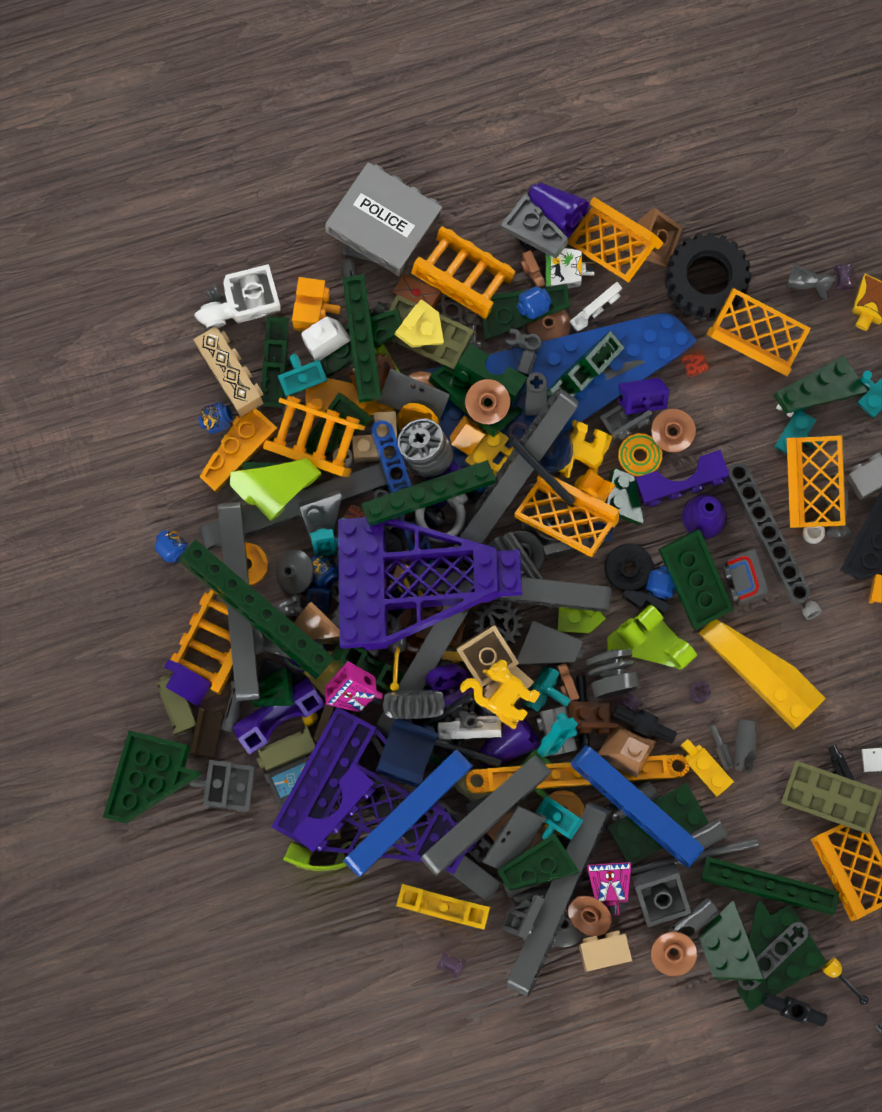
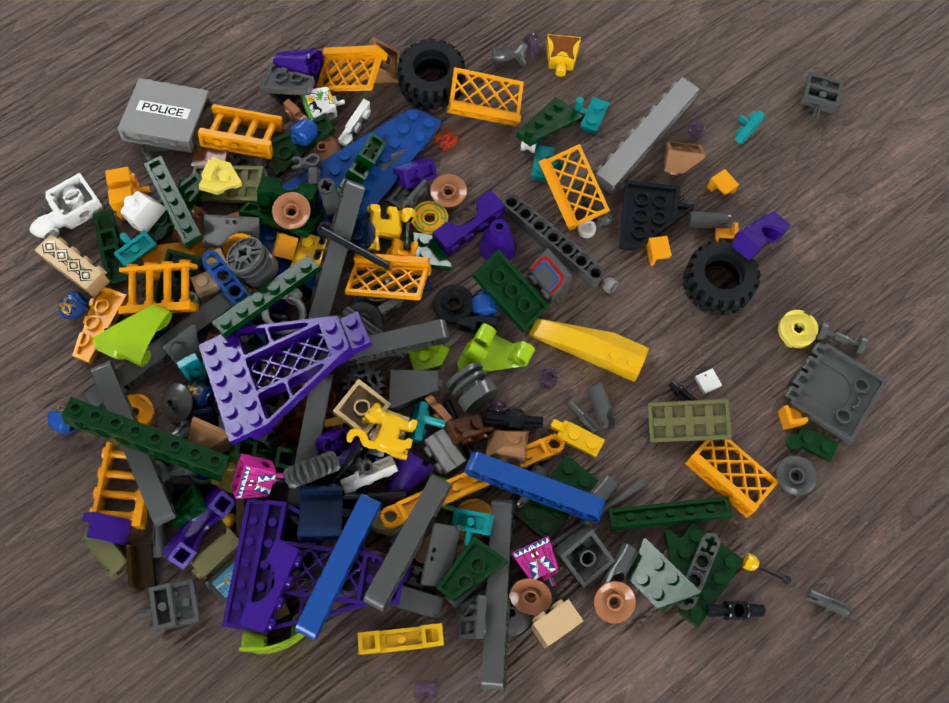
camera: 25 degrees left, 10 degrees down
(147, 775) = (94, 624): dark green wing -> none
(396, 648) = (283, 429): hinge -> none
(561, 731) = (447, 447): teal plate -> none
(615, 448) = (408, 216): none -> hinge

